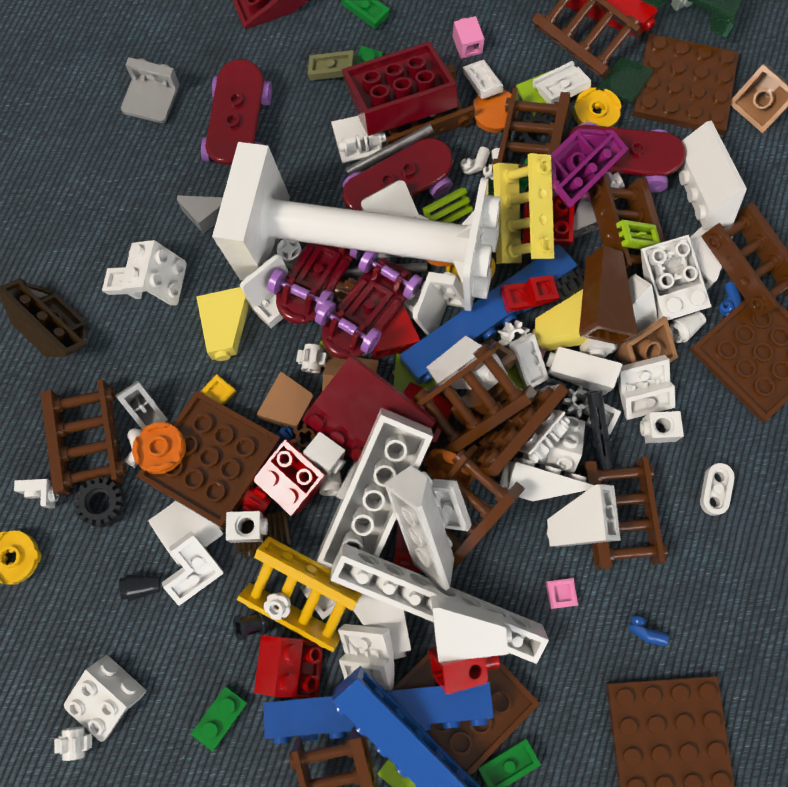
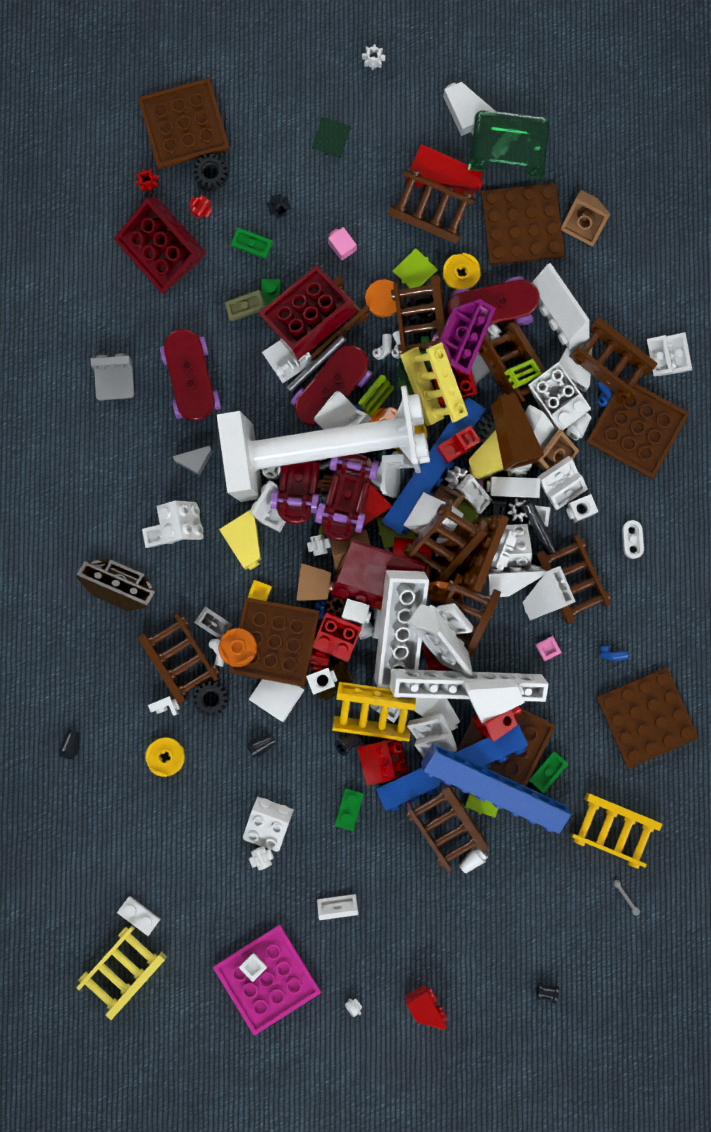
camera: 20 degrees left, 10 degrees up
(197, 571) = (297, 721): white plate -> none
(282, 601) = (364, 720): white plate -> none
(482, 79) = (366, 276): white plate -> none
(562, 79) = (428, 260): white plate -> none
(627, 79) = (476, 238): clear green piece -> none

